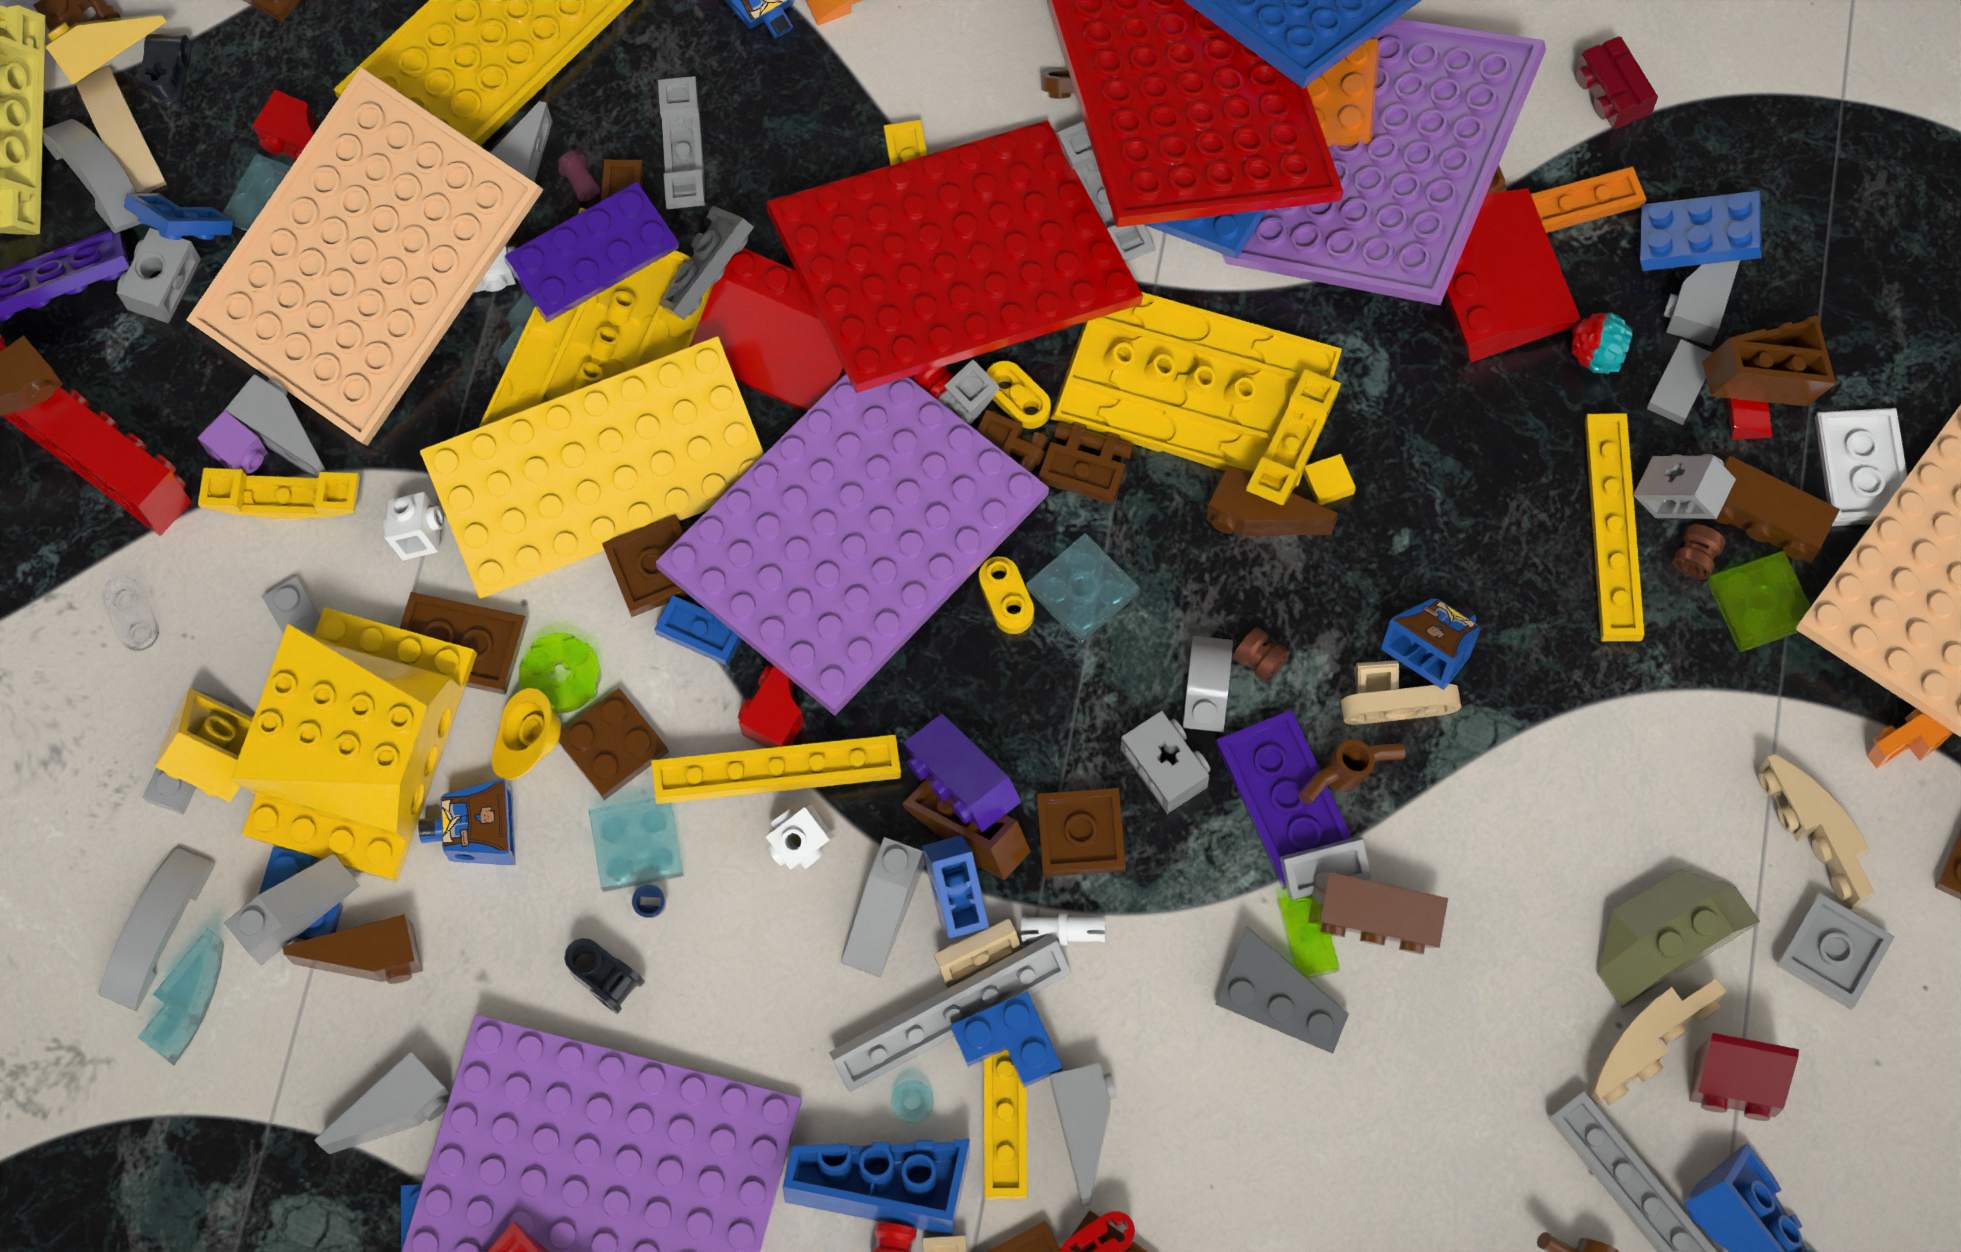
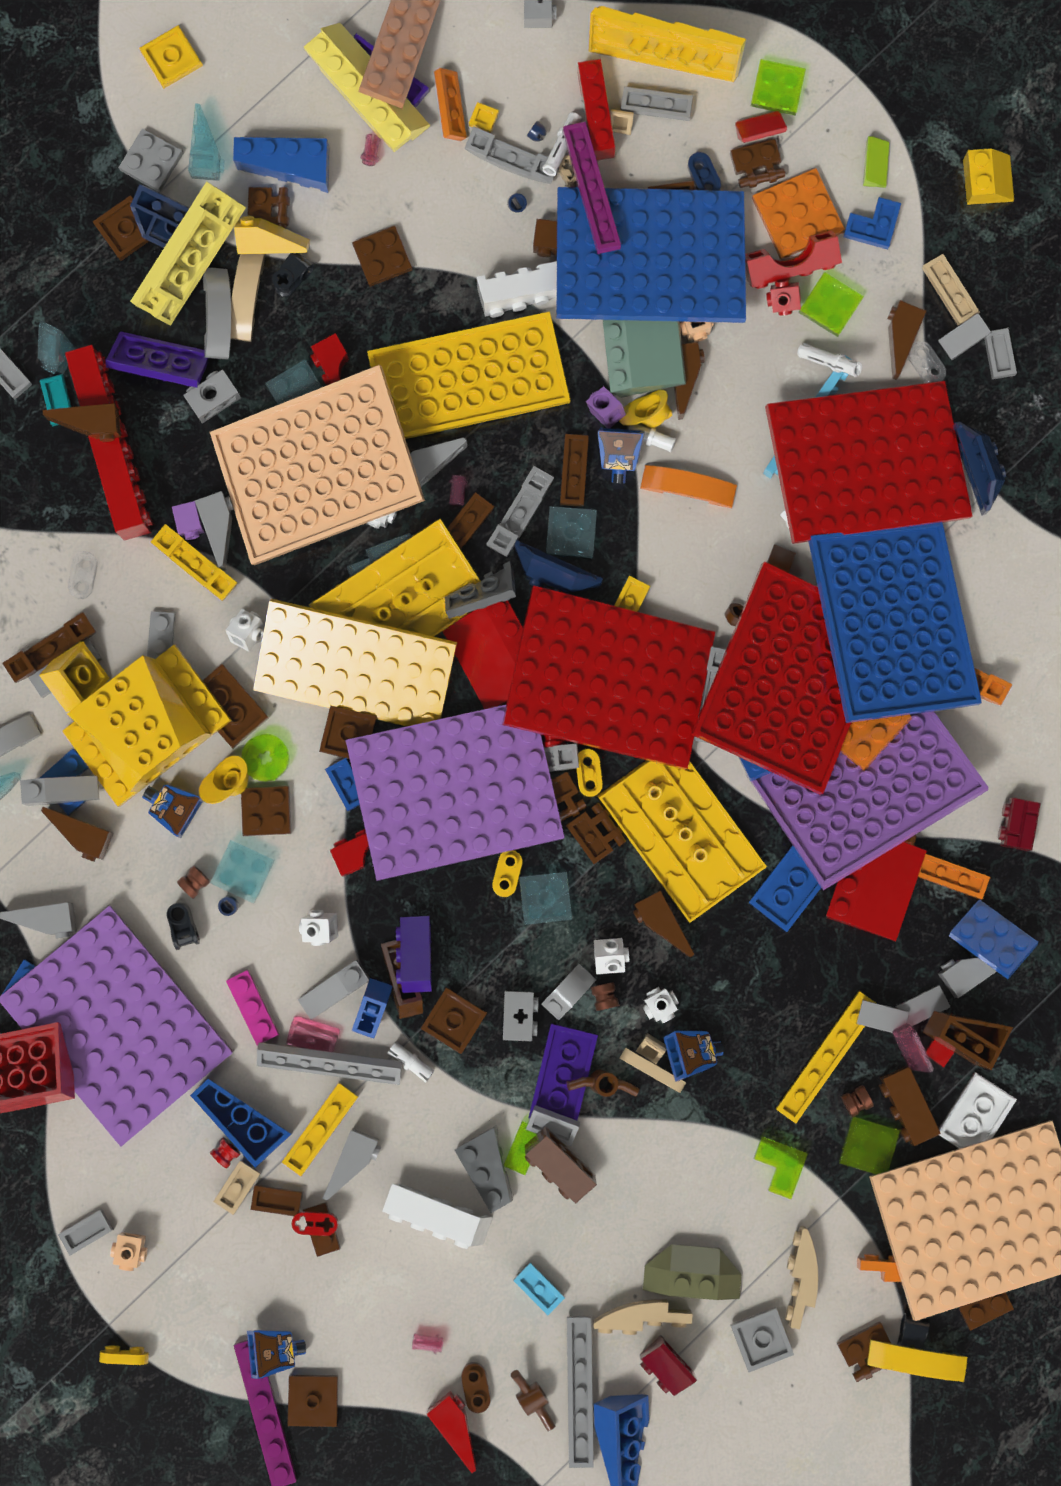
camera: 35 degrees right, 15 degrees up
(127, 779) = (40, 655): none -> reddish brown slope
(177, 221) = (236, 375): blue plate -> none
(575, 903) = (193, 882): none -> copper wheel
(591, 252) = (428, 548): dark purple plate -> none
(715, 54) = (574, 470): none -> reddish brown plate
(750, 183) = (554, 573): none -> dark blue wedge
(767, 127) = (571, 532): none -> clear light blue plate
(775, 769) = (331, 885): yellow plate -> none
(784, 1017) = (252, 1007): none -> dark pink plate
(896, 993) = (312, 1035): none -> clear pink slope
(908, 1089) = (278, 1098): clear light blue plate -> none
(977, 952) = (353, 1042): tan plate -> none
(1009, 1027) = (350, 1094): blue plate -> none
(1227, 596) = (610, 956): none -> white brick
(1260, 1107) = (436, 1216): none -> white wedge
(1294, 438) = (702, 900): yellow slope -> none
(1329, 480) = (708, 929): yellow tile -> none
(1343, 611) = (654, 997): none -> white brick
(1392, 356) = (786, 891): none -> blue plate
(1481, 1107) = (539, 1288): none -> medium azure plate
(1601, 342) = (896, 960): piece -> none
(1643, 423) = (881, 1016): none -> light grey slope
(1675, 695) = (788, 1165): none -> clear neon green plate
(1685, 486) = (874, 1067): light grey brick -> none
(1714, 431) = (912, 1048): none -> clear pink slope

